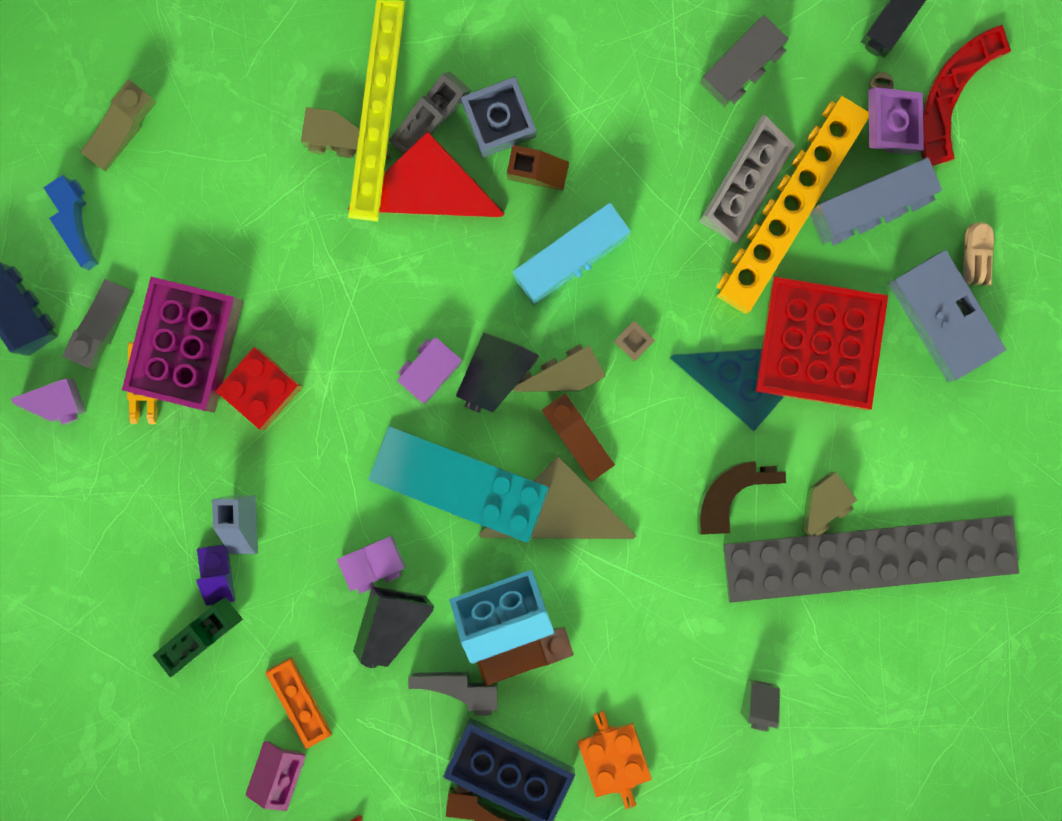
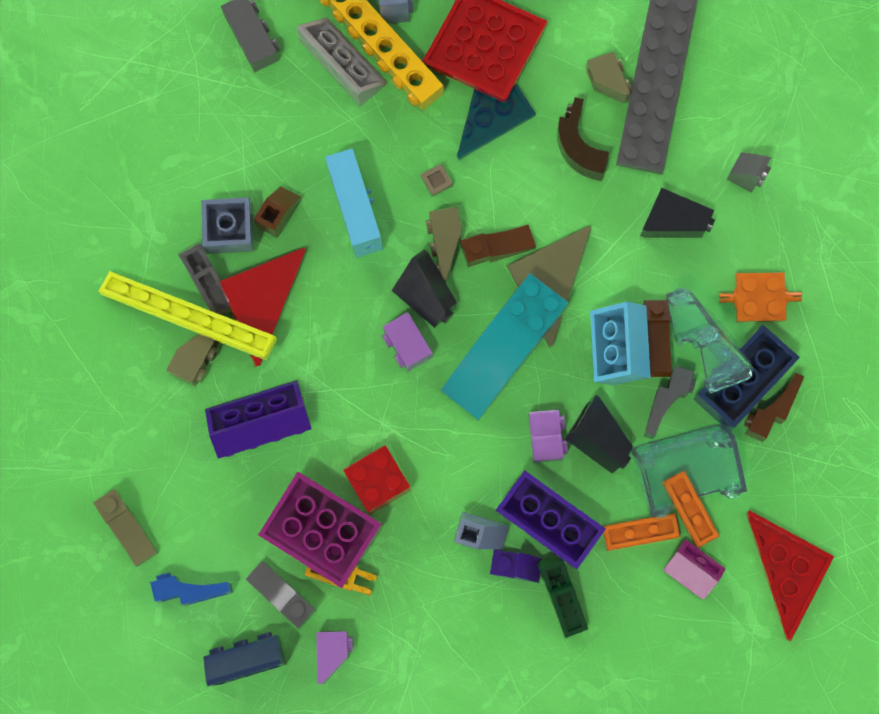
camera: 70 degrees left, 10 degrees down
(272, 599) = (550, 519): none -> dark purple slope
(286, 229) = (257, 419): none -> dark purple slope
(341, 751) = (690, 509): none -> orange tile
(387, 734) = (706, 456): none -> clear light blue windscreen
(519, 738) = (721, 355): none -> clear light blue windscreen
(679, 635) = (677, 217): none -> black slope

